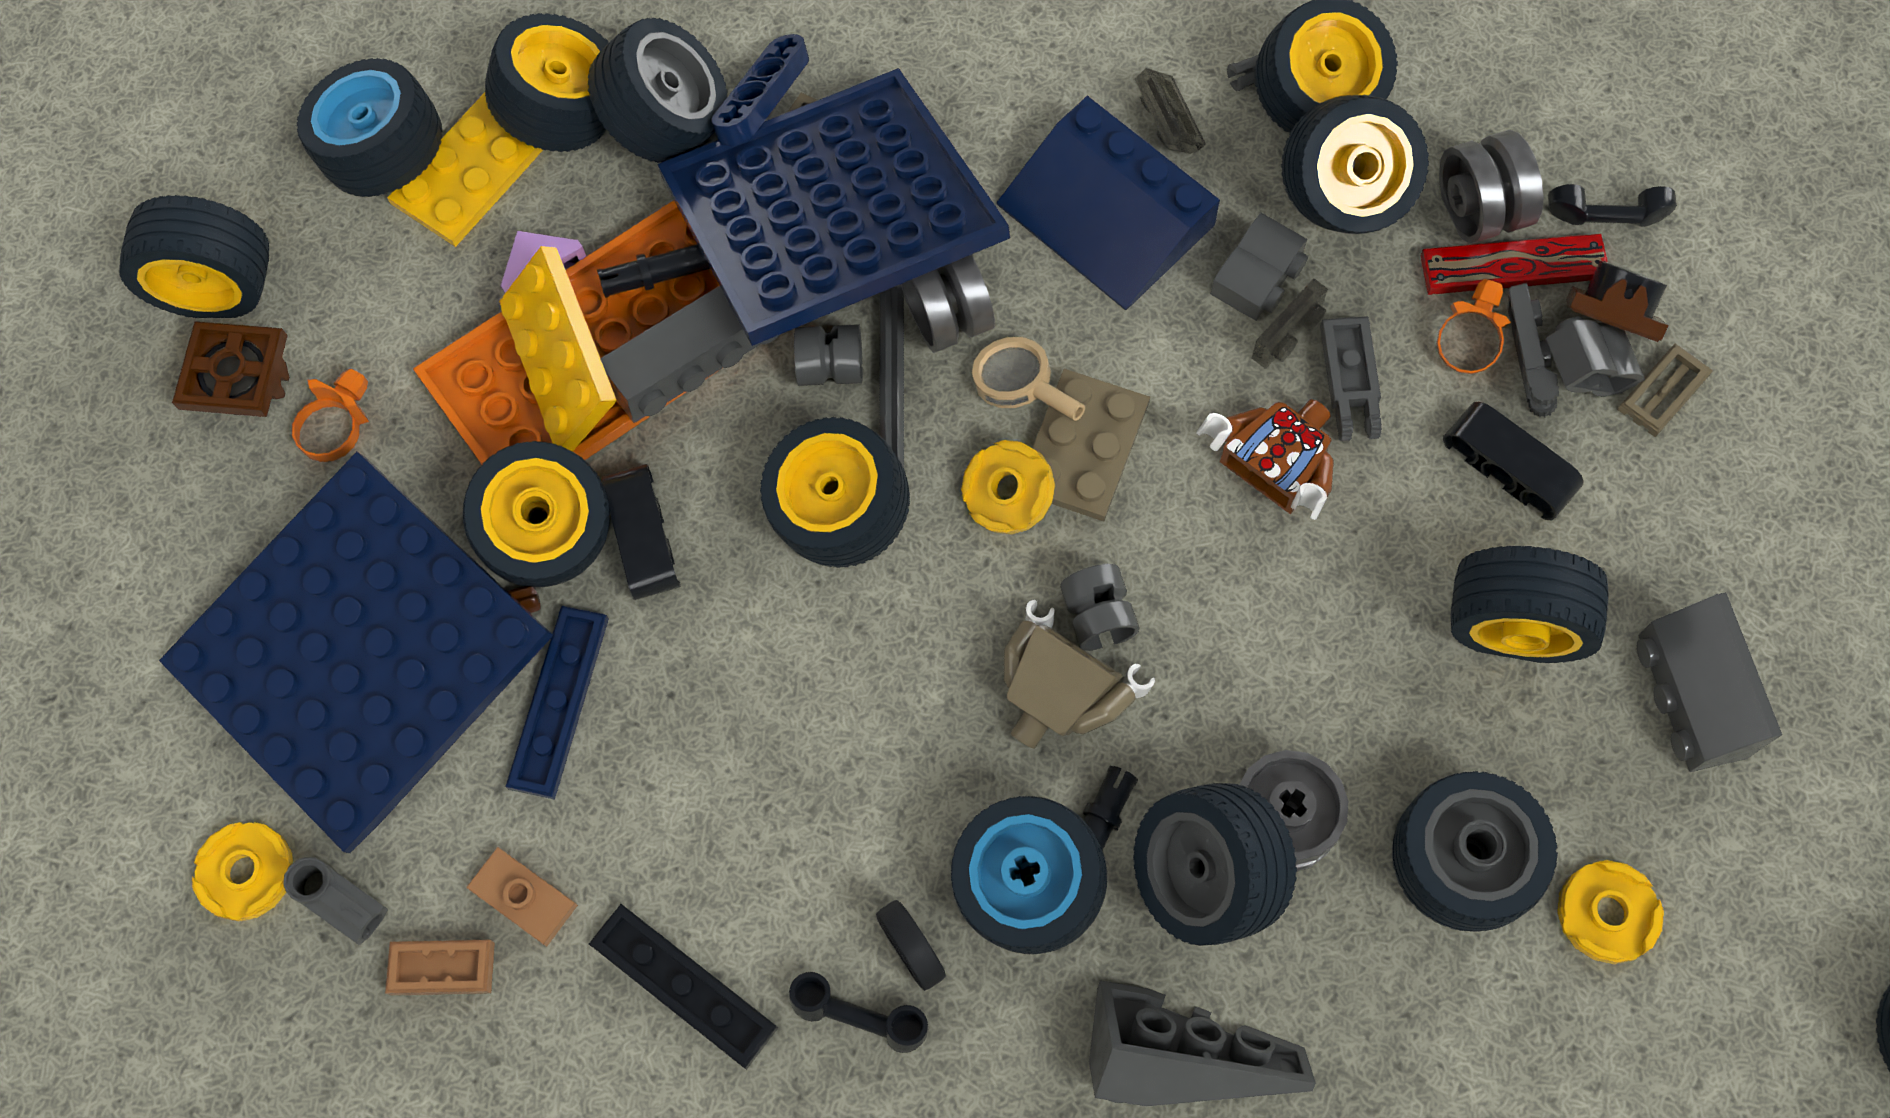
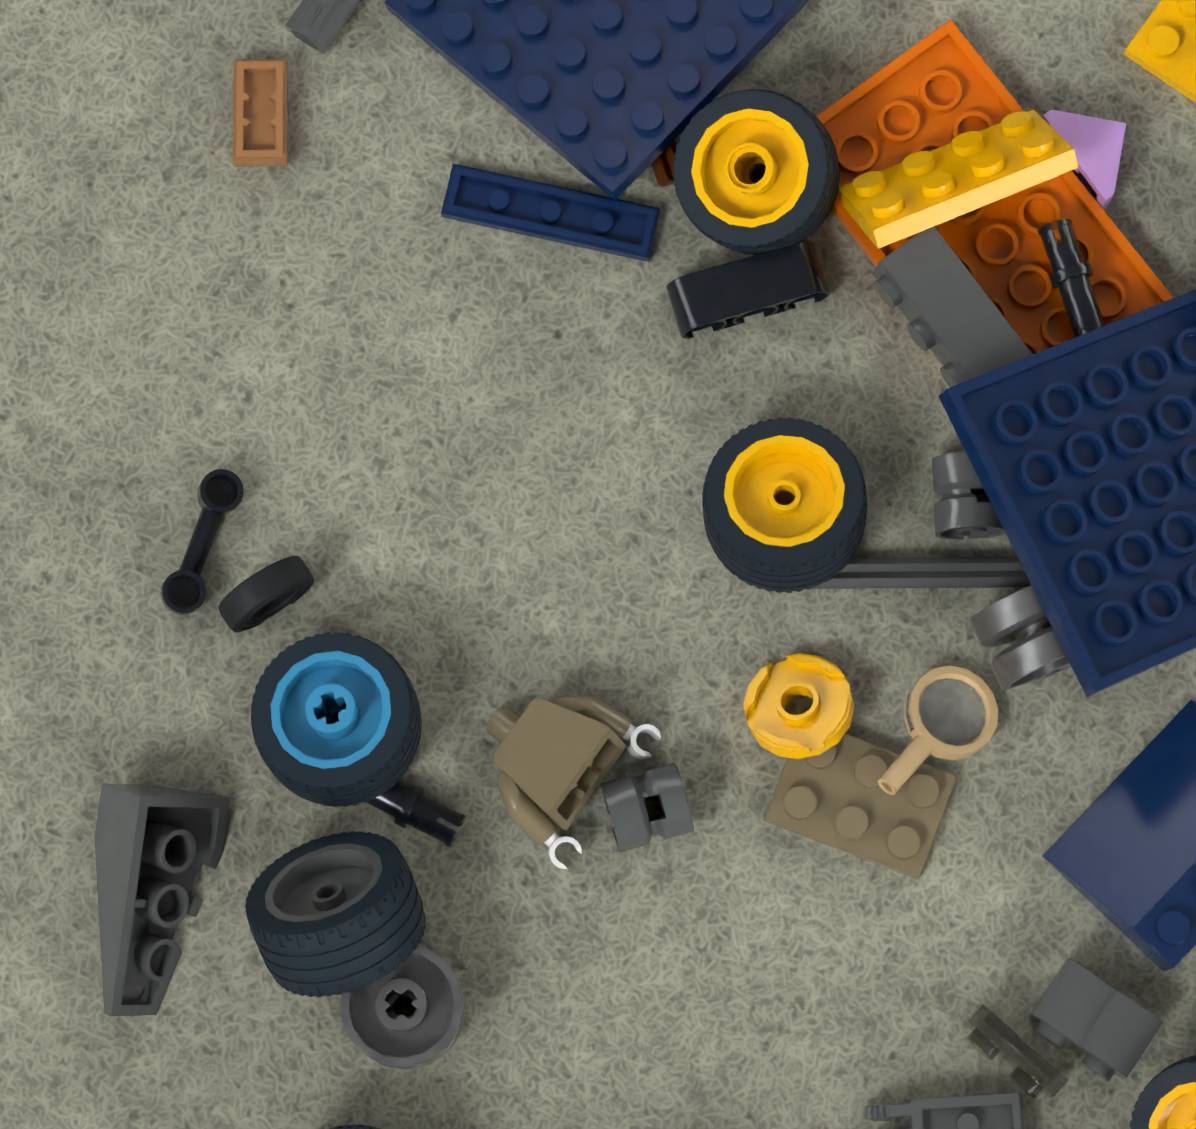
camera: 85 degrees right, 10 degrees up
(522, 896) = (334, 190): medium nougat plate -> none
(683, 986) = (237, 361): black tile -> none
(1278, 452) = (840, 1027): torso -> none

